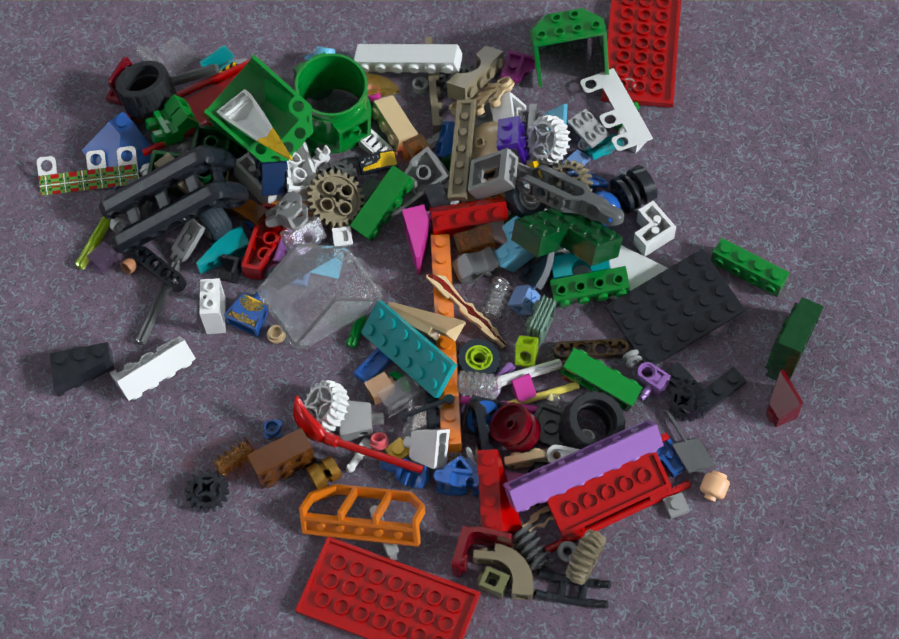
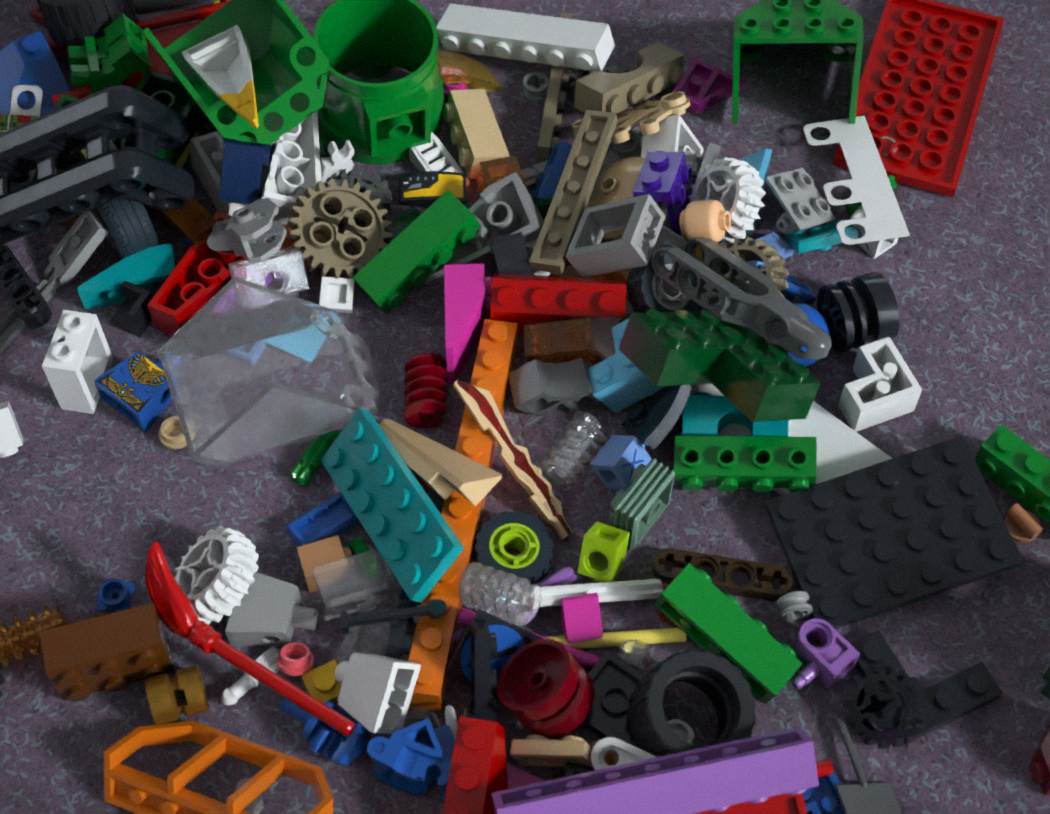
camera: 10 degrees right, 5 degrees down
(407, 282) = (425, 390): none -> dark red piece
(540, 155) = (704, 220): none -> light nougat head
(741, 289) = (1022, 524): none -> nougat plate

